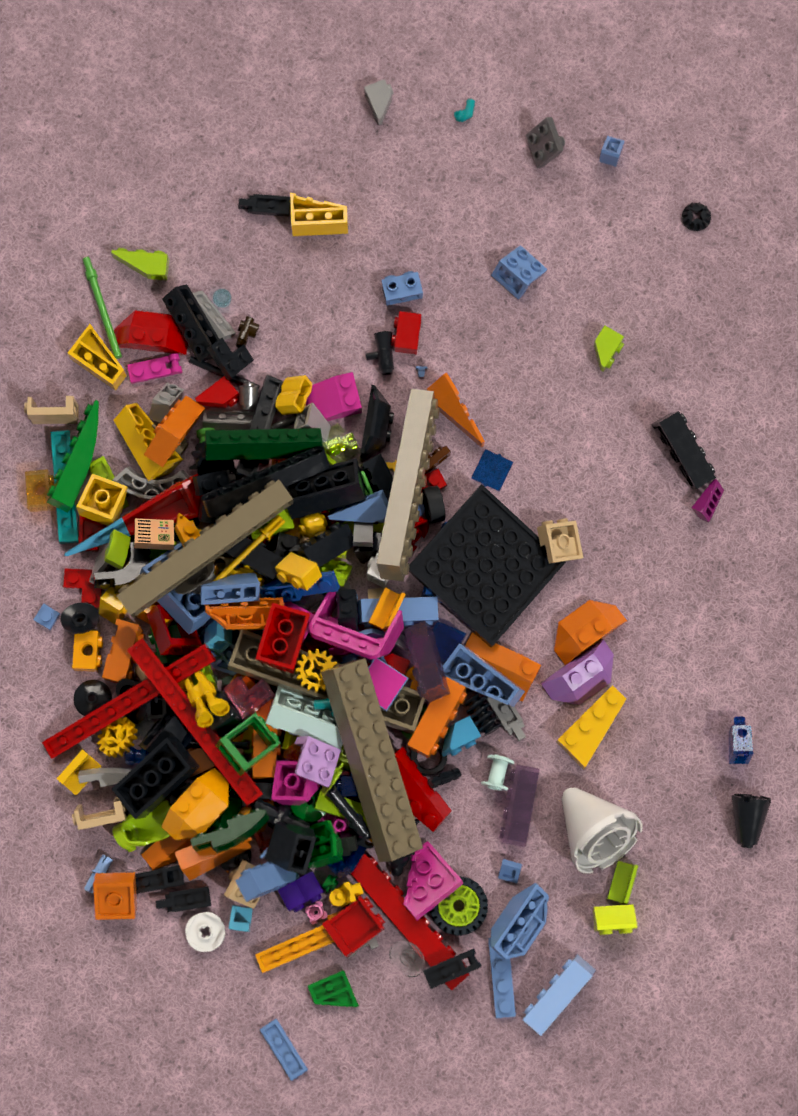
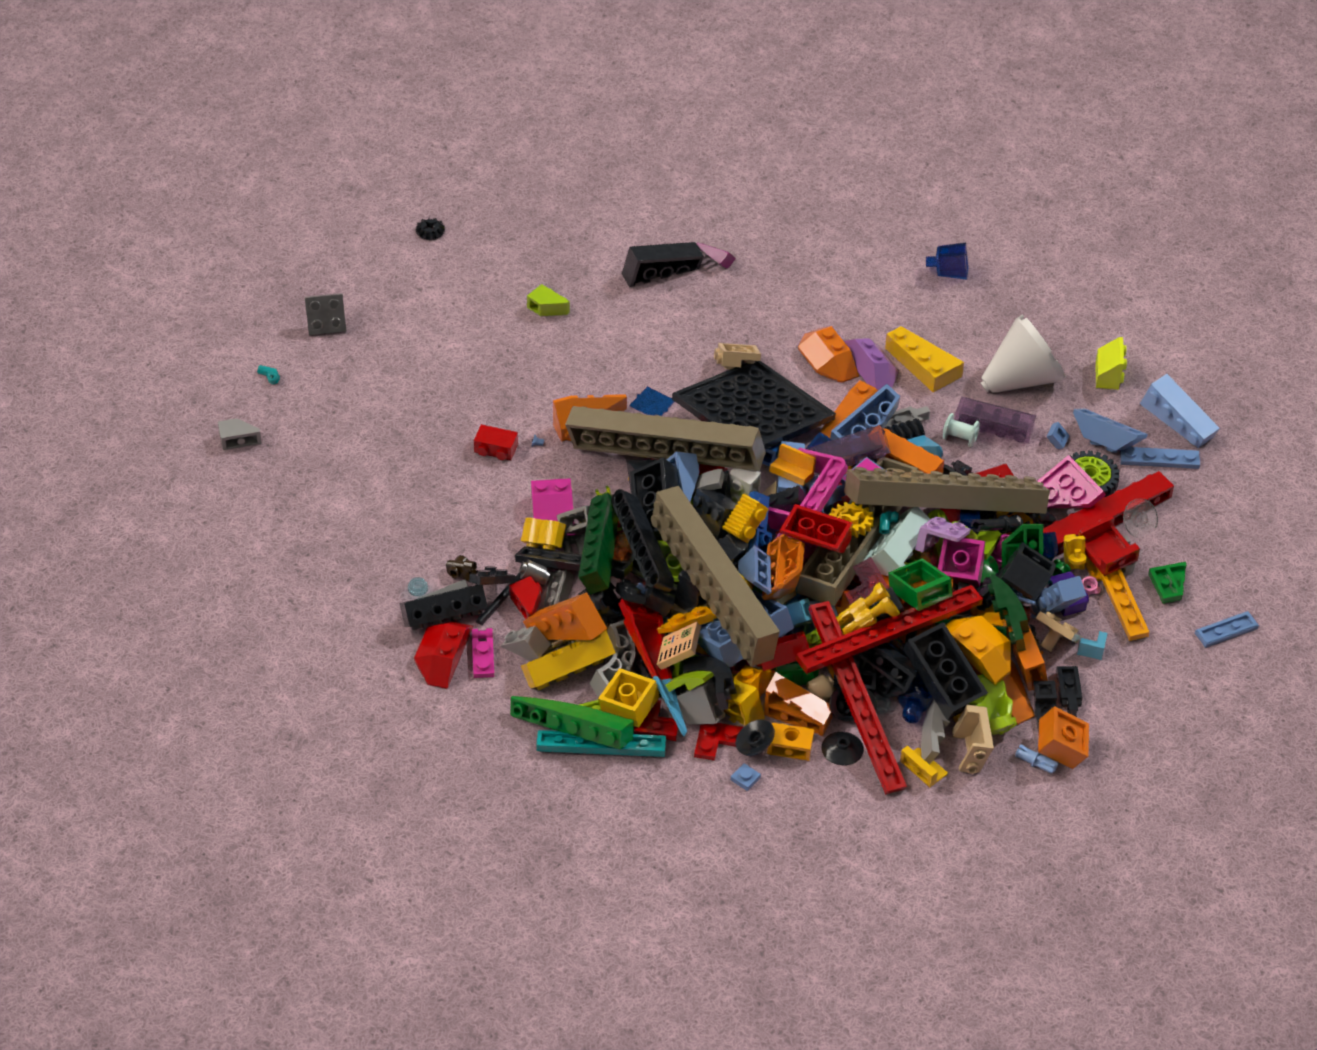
camera: 85 degrees left, 30 degrees down
(34, 481) = (601, 764): clear yellow brick -> none
(53, 415) = (512, 751): tan panel -> none
(91, 276) = (361, 695): bright green bar -> none
(96, 358) = (462, 694): yellow wedge -> none
(117, 737) = (896, 717): yellow gear -> none
(149, 265) = (364, 642): lime slope -> none
(195, 937) = (1103, 686): white plate -> none
(266, 205) = (324, 538): black hinge -> none
(317, 217) = (352, 495): yellow wedge -> none
(376, 425) = (585, 474): black wedge -> none
(384, 353) = (513, 464): black piece -> none
(402, 288) = (447, 441): medium blue brick -> none
(451, 969) = (1154, 478): black plate -> none
(518, 271) = (454, 355): medium blue bracket -> none
(611, 151) = (348, 274): medium blue slope -> none
(622, 882) = (1076, 357): lime panel -> none
(749, 817) = (1021, 265): black cone -> none

